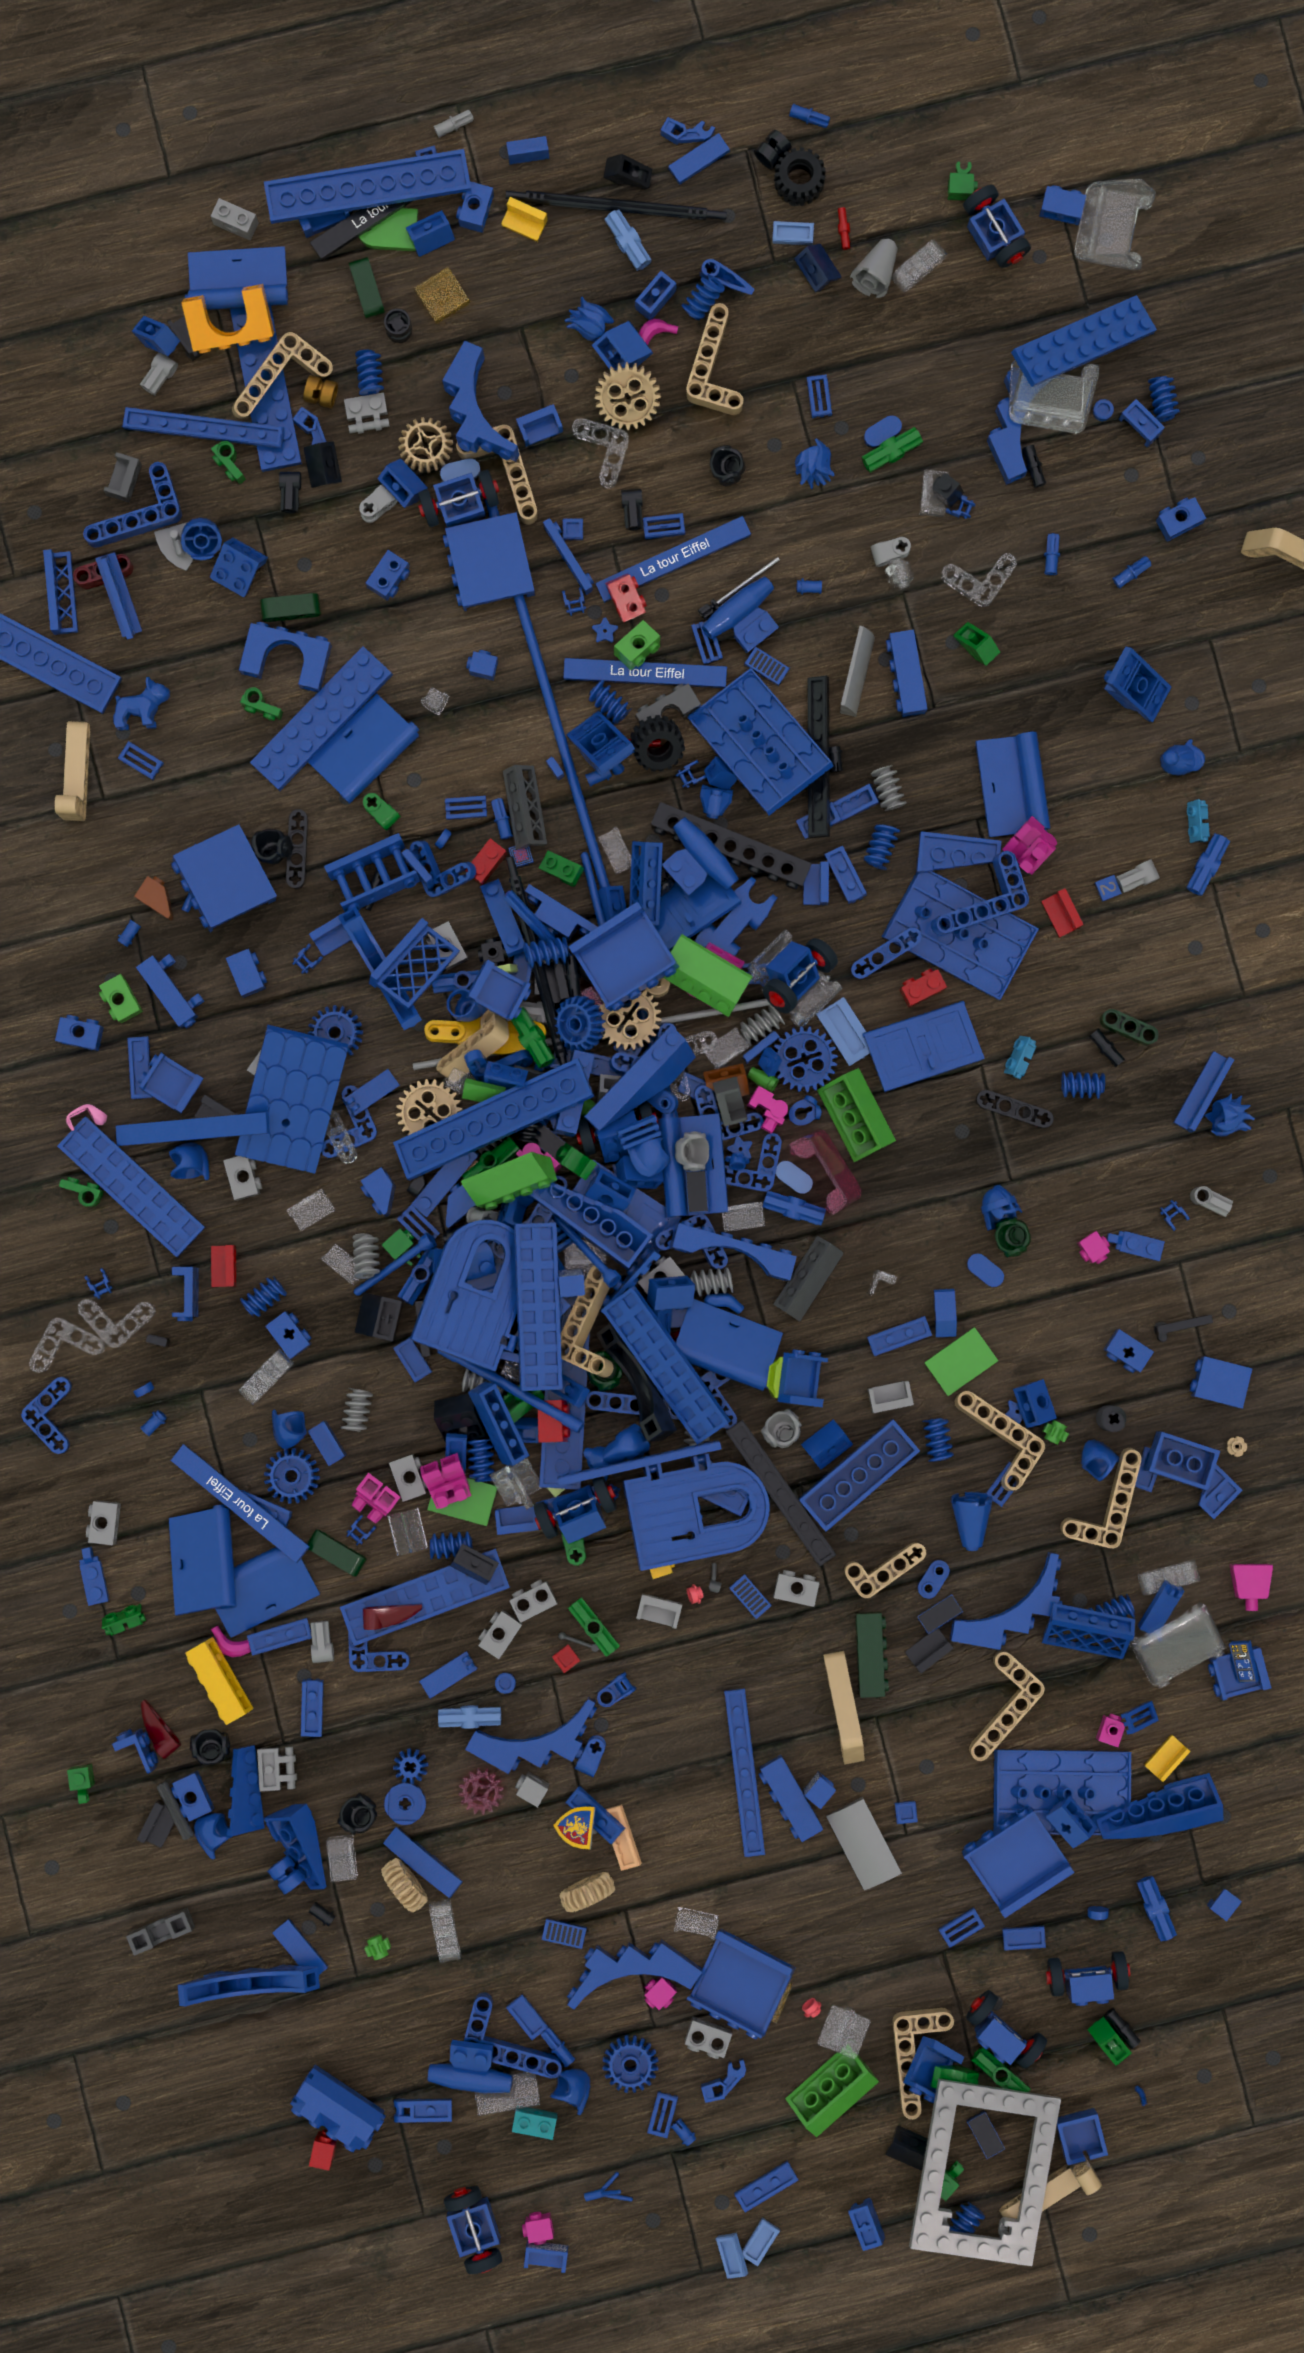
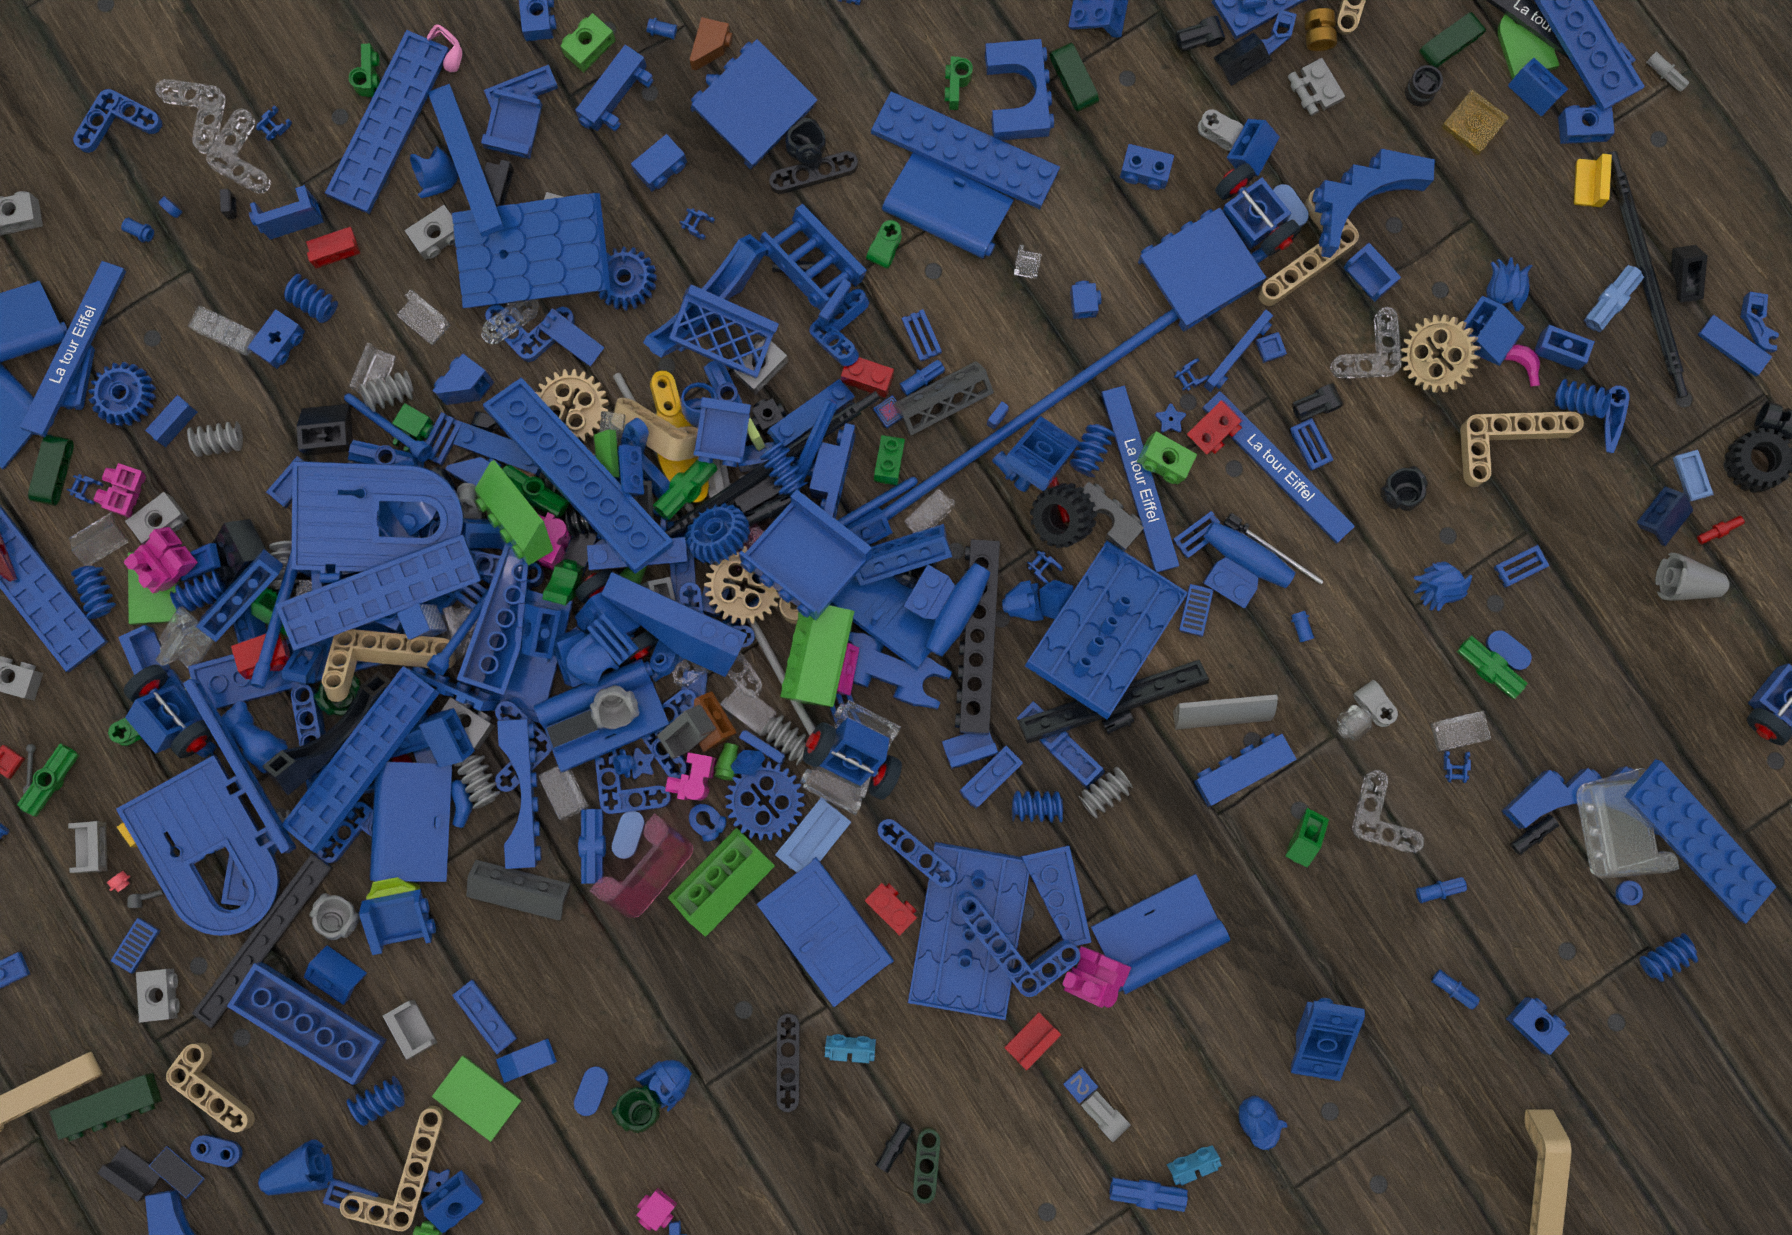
camera: 70 degrees right, 5 degrees down
(288, 1428) = (172, 372): blue piece -> none
(330, 936) = (726, 234): blue panel -> none
(368, 373) = (1360, 71): blue piece -> none
(418, 448) = (1292, 143): tan gear -> none
(443, 838) = (878, 321): blue tile -> none
(474, 1564) = (75, 622): black panel -> none
(527, 150) = (1669, 159): blue panel -> none
(535, 1605) = (55, 707): light grey brick -> none
(880, 1276) = (542, 974): clear panel -> none
(919, 265) = (1712, 627): clear beam -> none
(947, 489) = (1469, 744): black brick -> none
(1083, 1085) = (840, 1133): blue piece -> none
(1142, 422) = (1633, 942): blue panel -> none

